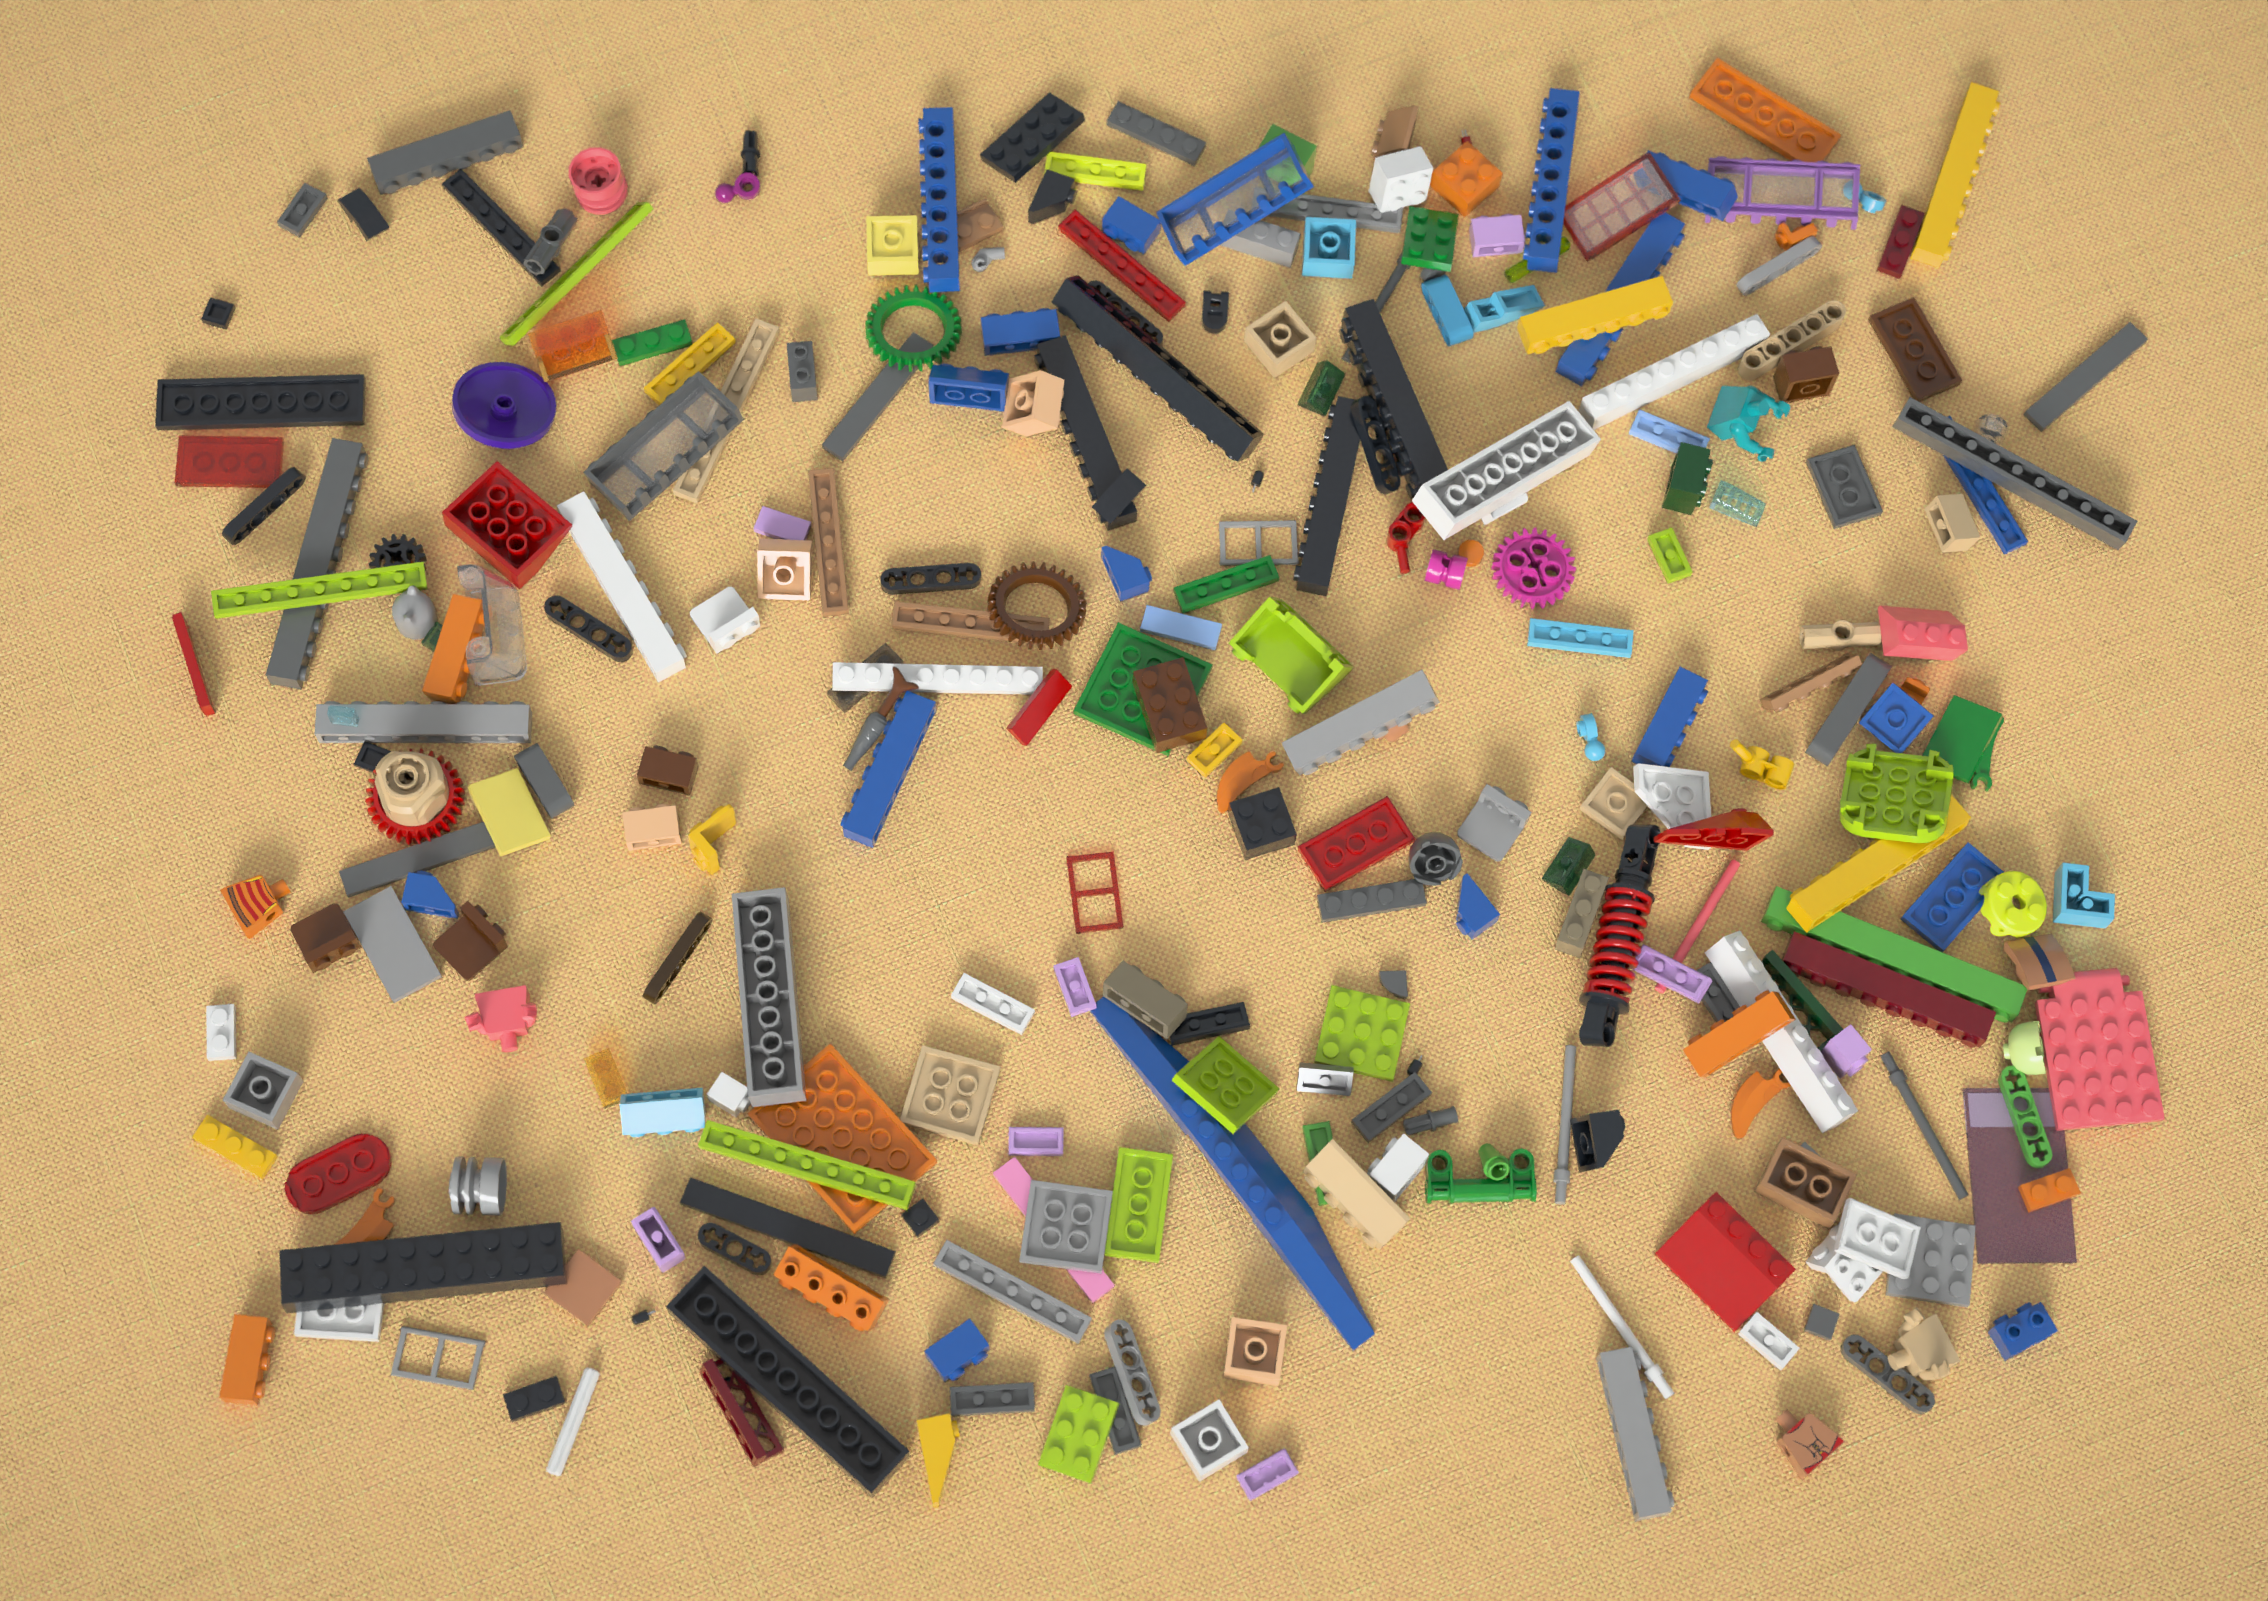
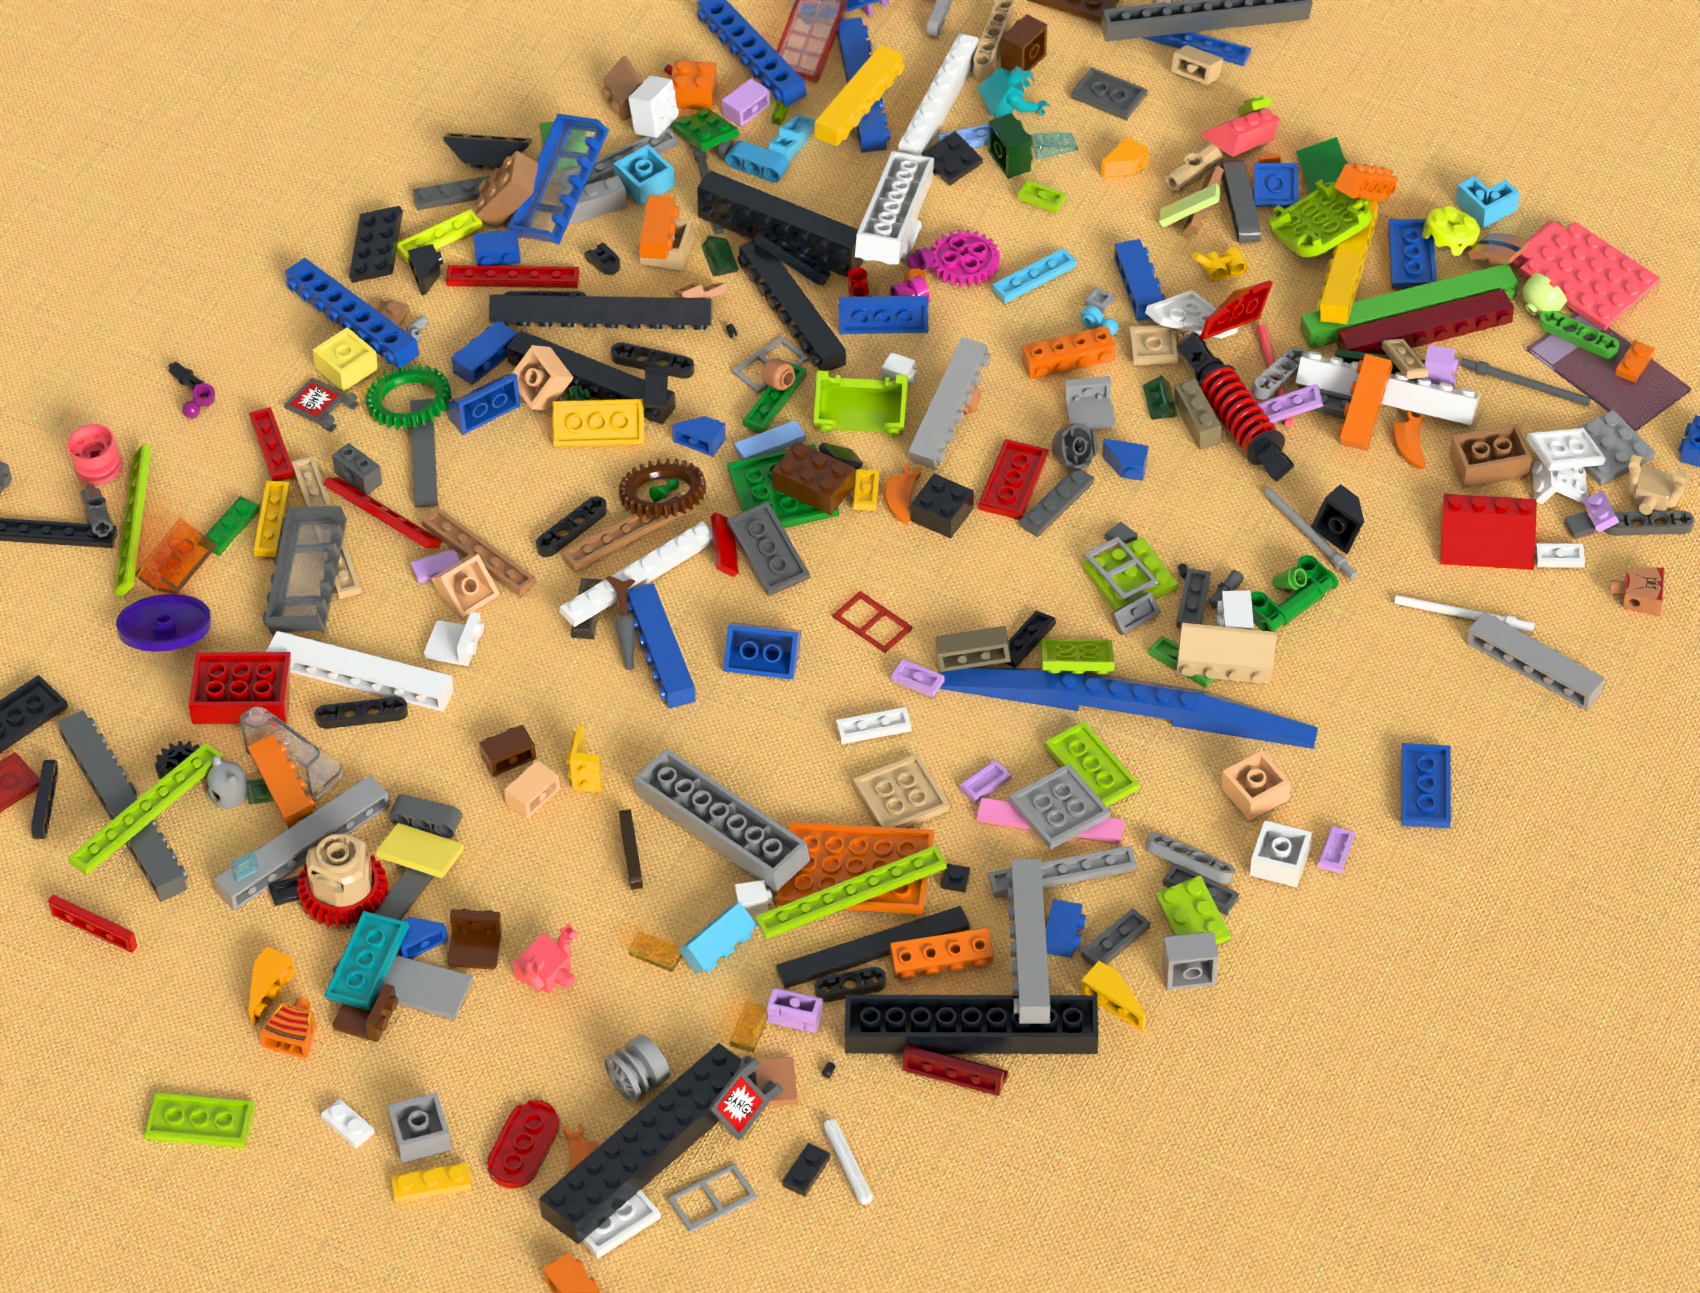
camera: 35 degrees left, 20 degrees down
(114, 928) = (199, 1120): none -> lime tile
(278, 837) = (269, 976): none -> light orange slope
(364, 890) = (366, 960): none -> teal tile
(532, 1293) = (742, 1100): none -> flag
(612, 1220) = (749, 1027): none -> clear yellow plate
(758, 285) = (271, 444): none -> red plate
(784, 435) = (382, 513): none -> red tile
(837, 268) = (318, 400): none -> flag
(901, 1348) = (1030, 941): none -> light grey brick
(970, 845) = (762, 650): none -> blue slope
(1026, 1481) = (1190, 960): none -> light grey brick
(1036, 606) = (660, 492): none -> green piece
(1046, 489) = (598, 423): none -> yellow tile
(1052, 447) = (576, 393): none -> dark green gear
(1068, 744) = (768, 548): none -> dark grey plate
(1158, 456) = (654, 357): none -> black beam
(1184, 172) = (506, 189): none -> medium nougat brick
(1217, 106) = (484, 149): none -> black wedge
(1220, 697) = (842, 454): none -> tile
(1242, 566) = (778, 374): none -> nougat head
(1253, 416) = (697, 291): none -> slope
(1274, 323) = (658, 227): none -> orange brick
(1356, 1023) = (1107, 575): none -> light grey window
(1359, 646) = (899, 365): none -> white brick
(1397, 576) = (883, 314): none -> blue plate
(1409, 1477) = (1426, 785): none -> blue plate
(1490, 541) = (921, 259): none -> magenta plate
(1529, 749) = (1068, 352): none -> orange brick
(1616, 712) = (1100, 299): none -> light grey tile
(1626, 446) = (953, 158): none -> black plate
(1698, 930) = (1278, 372): none -> light grey beam
(1785, 576) = (1125, 159): none -> light orange slope
(1789, 679) = (1189, 205): none -> yellowish green tile
(1822, 1016) = (1404, 358): none -> tan tile
(1850, 1327) = (1600, 511): none -> lavender plate
(1961, 614) = (1255, 104): none -> lime plate
(1972, 793) = (1367, 182): none -> orange brick

